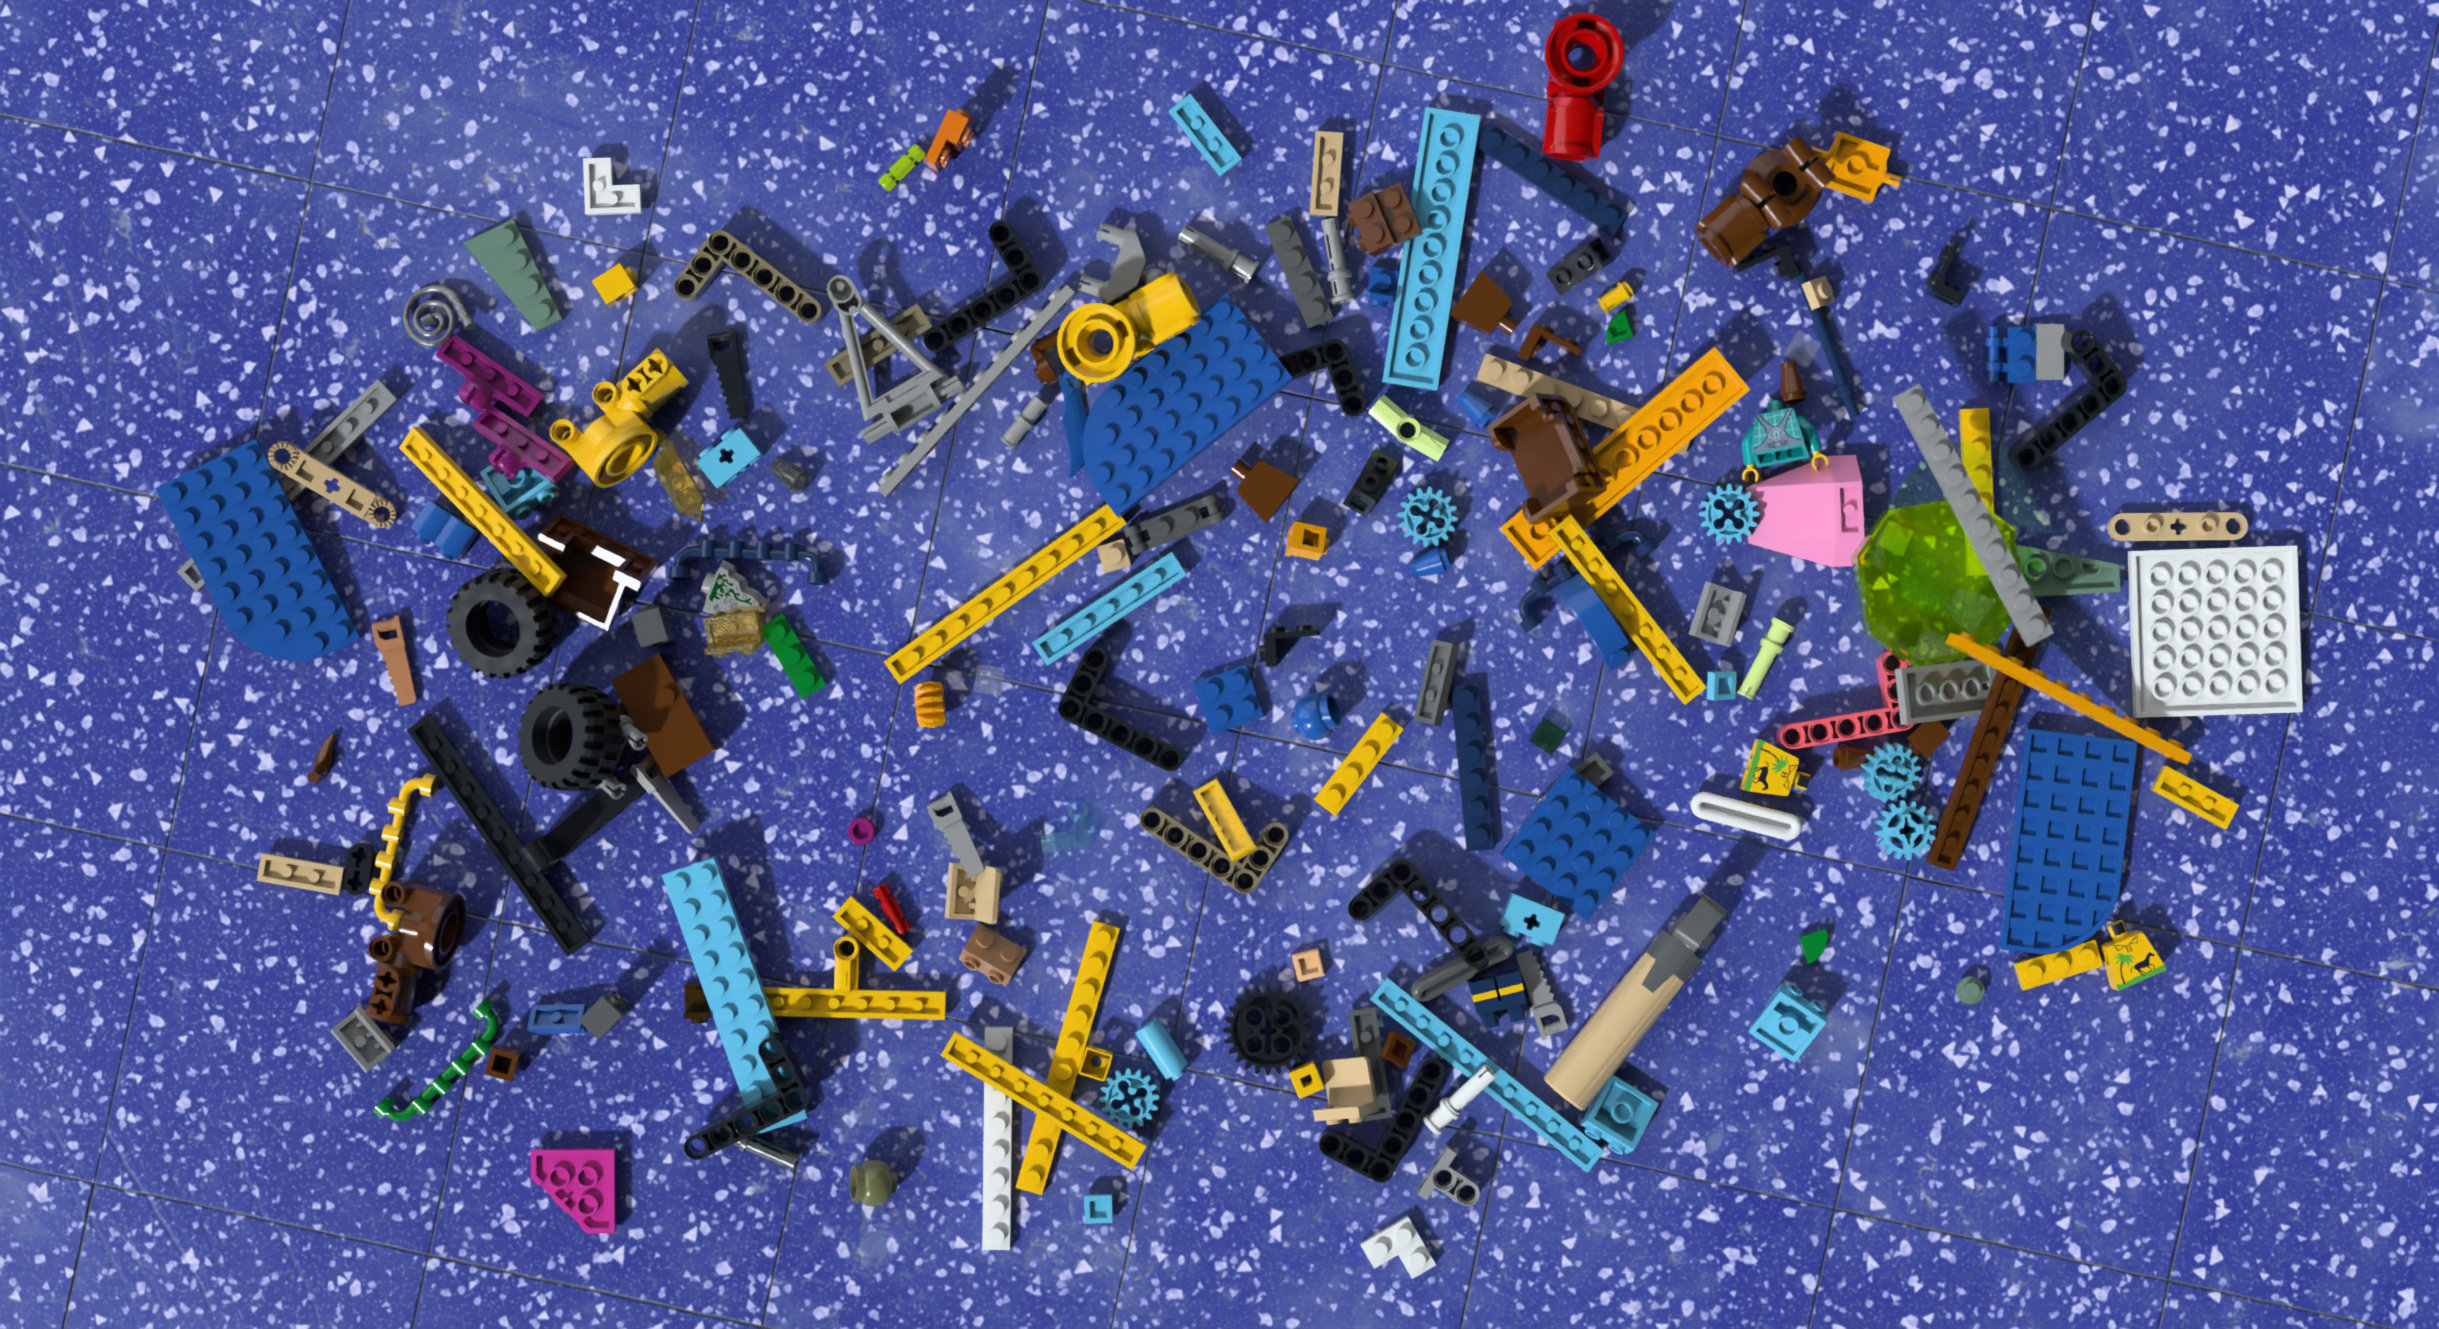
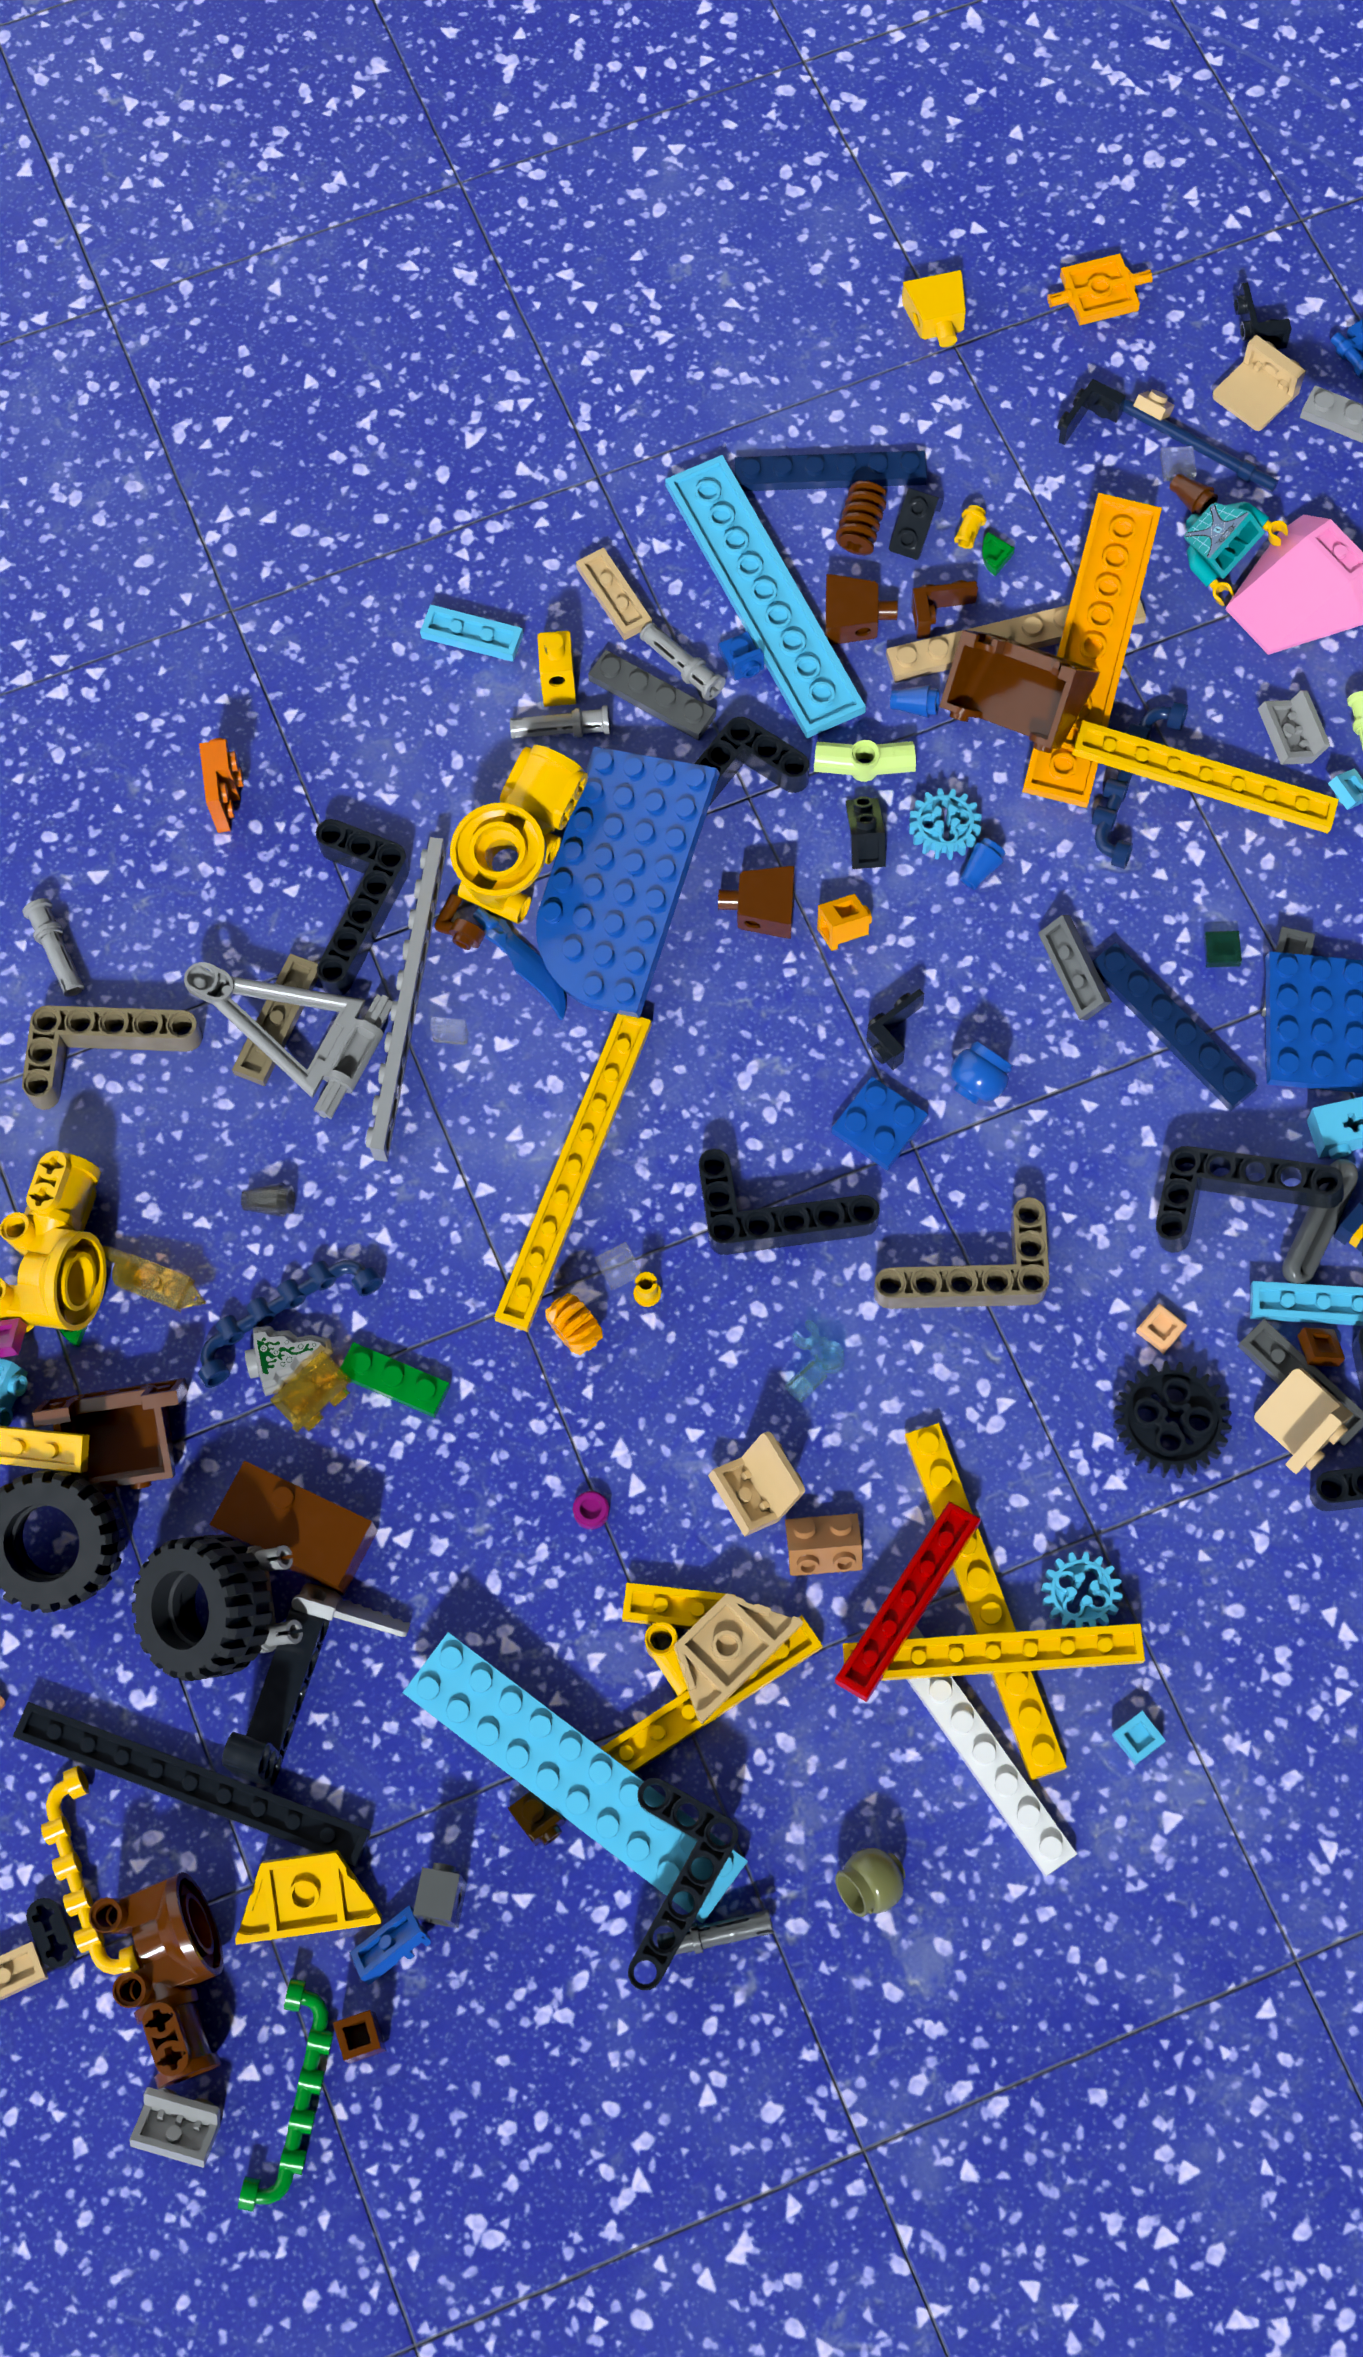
camera: 30 degrees left, 20 degrees down
(525, 956) = (305, 1898): none -> yellow wing
(580, 1183) = (539, 2125): dark pink plate -> none
(653, 626) = (221, 1438): dark grey brick -> none
(729, 371) = (138, 1145): black piece -> none
(744, 456) = (195, 1241): medium azure brick -> none
(762, 170) = (49, 935): none -> light grey pin
(883, 985) = (728, 1649): none -> tan wing
(891, 909) = (680, 1569): red axle -> none
(901, 167) = (189, 845): lime axle -> none
(956, 833) = (694, 1439): light grey piece -> none
(987, 436) = (449, 1030): none -> clear tile
(1002, 711) = (650, 1296): none -> yellow pin
(1013, 1033) = (907, 1601): none -> red tile
(1023, 422) = (477, 995): light grey pin -> none
(1091, 1071) = (1018, 1567): yellow piece -> none
(1109, 608) = (692, 1115): medium azure plate -> none
(1113, 556) = (660, 1063): tan plate -> none
(1127, 270) = (477, 779): light grey connector -> none
(1162, 1049) = (1078, 1516): medium azure brick -> none
(1174, 524) = (700, 994): dark grey plate -> none
(1225, 820) = (966, 1236): yellow plate -> none
(1243, 209) = (556, 660): none -> yellow torso
(1310, 1087) = (1257, 1433): yellow piece -> none
(1358, 764) = (1057, 1098): yellow plate -> none
(1384, 220) = (699, 593): reddish brown plate -> none
(1541, 238) = (861, 518): none -> reddish brown piece
(1575, 113) = (782, 330): red piece -> none
(1596, 621) = (1186, 800): blue arch -> none
(1724, 99) = (936, 306): none -> yellow torso
(1729, 497) = (1244, 625): medium azure gear -> none
(1745, 218) = (1043, 353): reddish brown piece -> none
(1904, 330) = (1260, 384): none -> tan bracket

